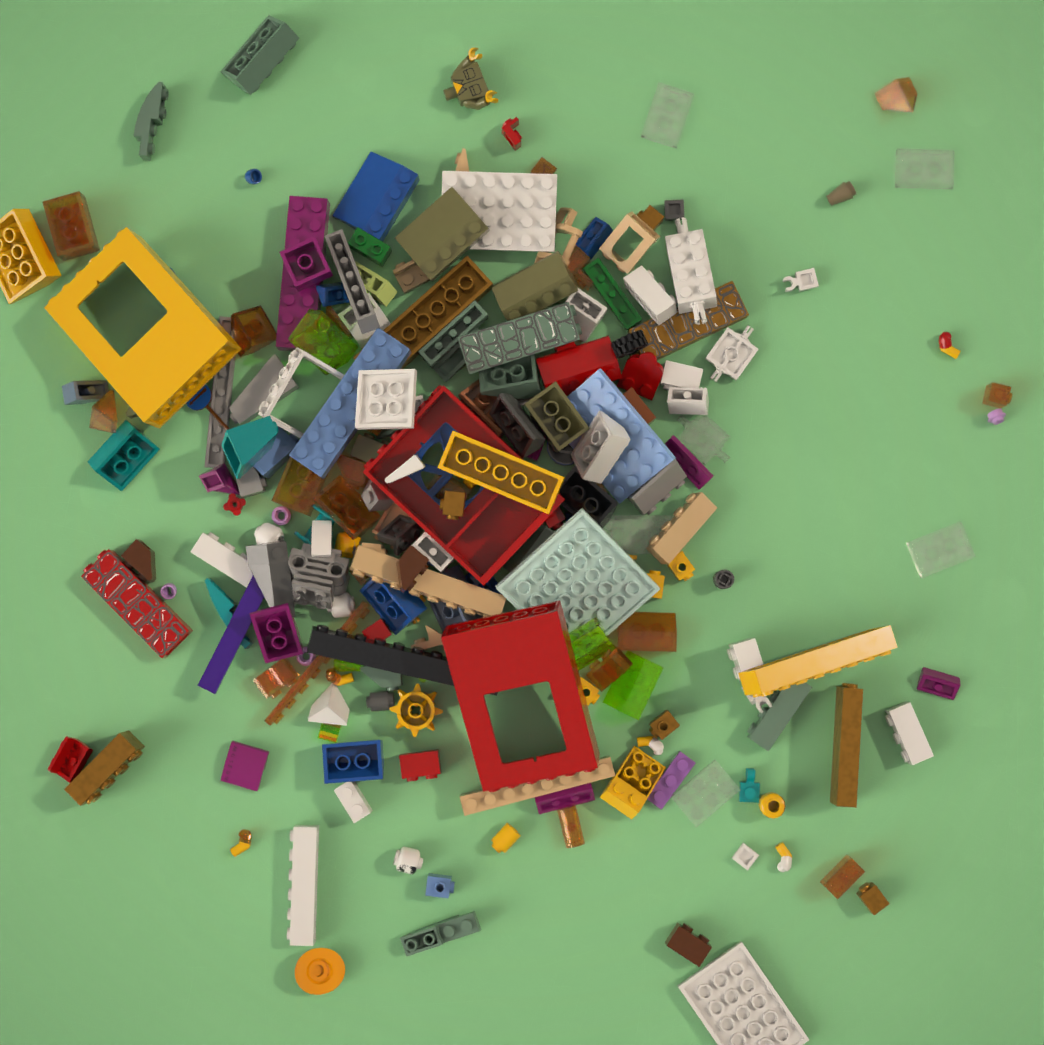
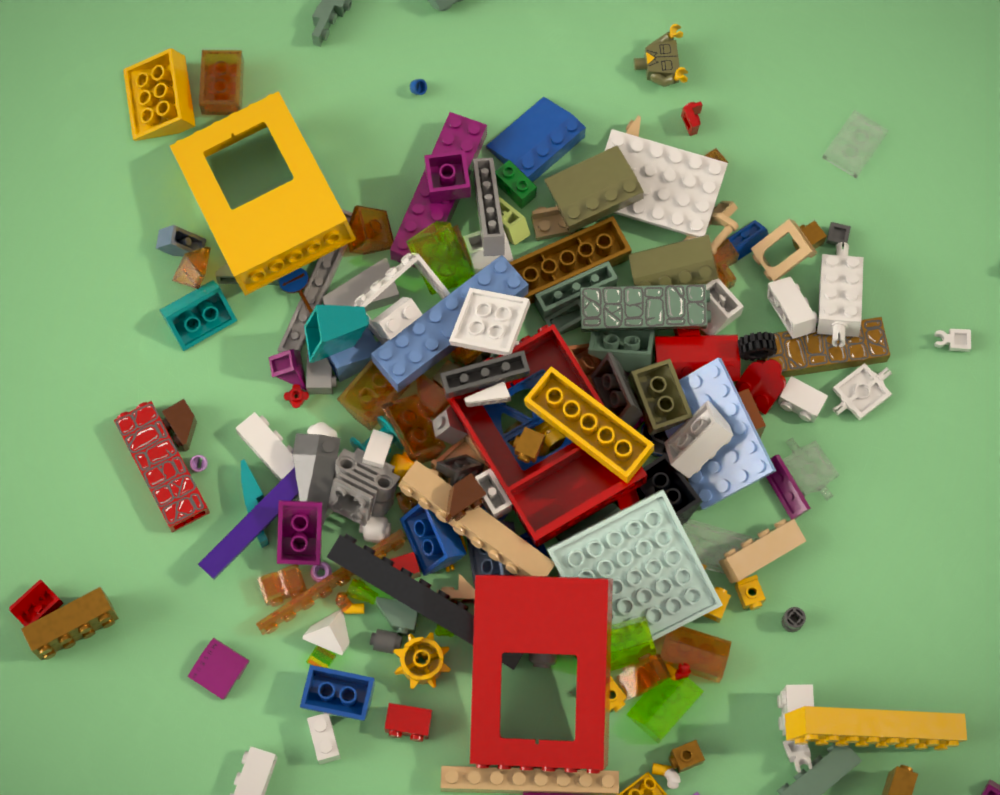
camera: 10 degrees right, 15 degrees down
(244, 843) = (191, 751): arm -> none
(275, 513) = (341, 415): lavender plate -> none
(301, 414) = (396, 318): none -> white brick
(332, 294) = (464, 217): blue slope -> none
(396, 453) = (485, 374): none -> dark grey brick
(612, 294) = (752, 297): green plate -> none
(637, 659) = (682, 672): none -> red arm
(658, 488) = (748, 502): light grey slope -> none
(688, 400) = (803, 423): white brick -> none

